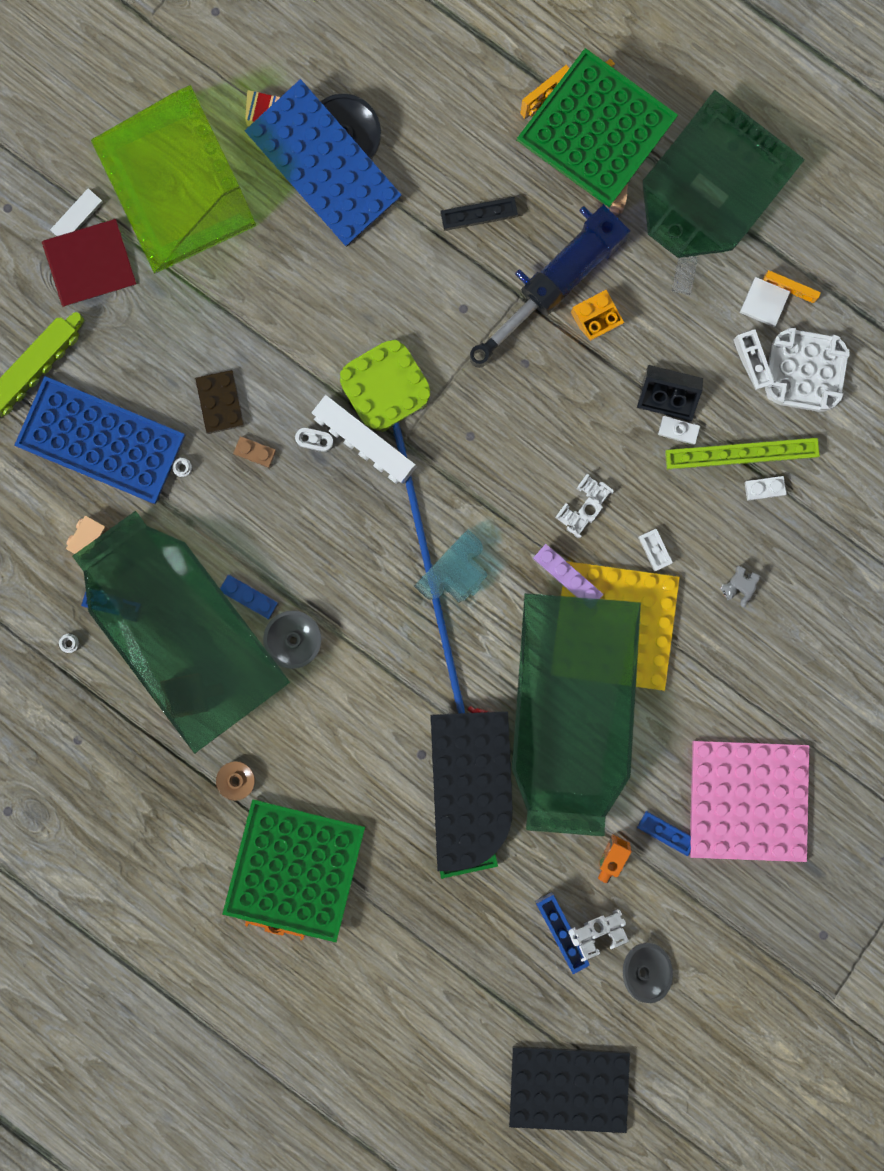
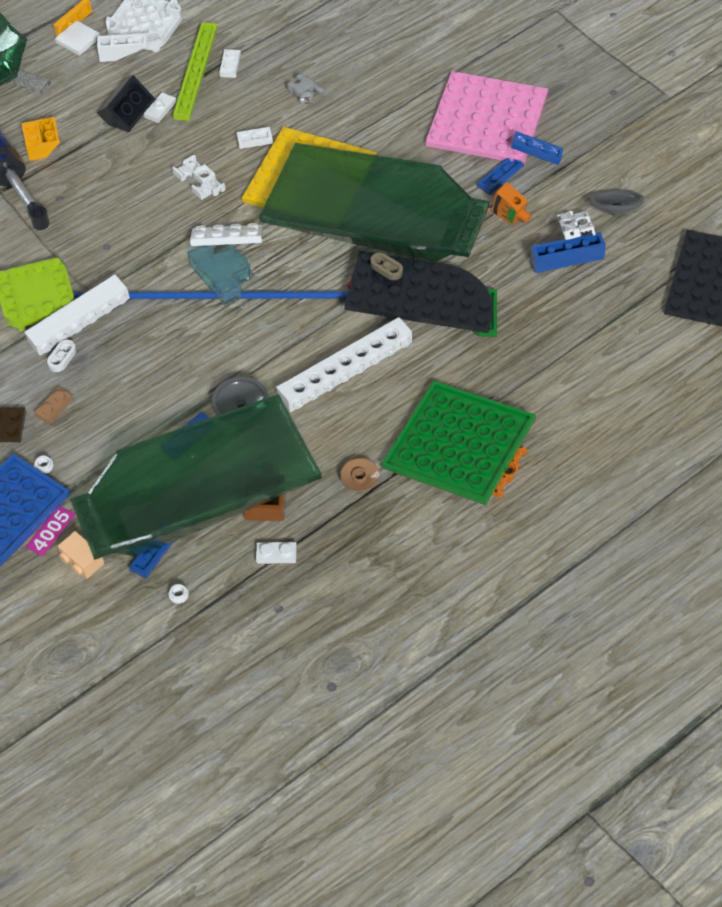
camera: 70 degrees left, 30 degrees down
(112, 498) = (50, 531): none -> dark pink sticker
(134, 722) = (276, 552): none -> white plate
(310, 690) = (344, 364): none -> white brick
(484, 748) = (389, 267): none -> dark tan plate
(505, 561) = (230, 234): none -> white plate
(566, 574) = (250, 196): lavender plate -> none
(706, 869) = (537, 148): none -> blue plate

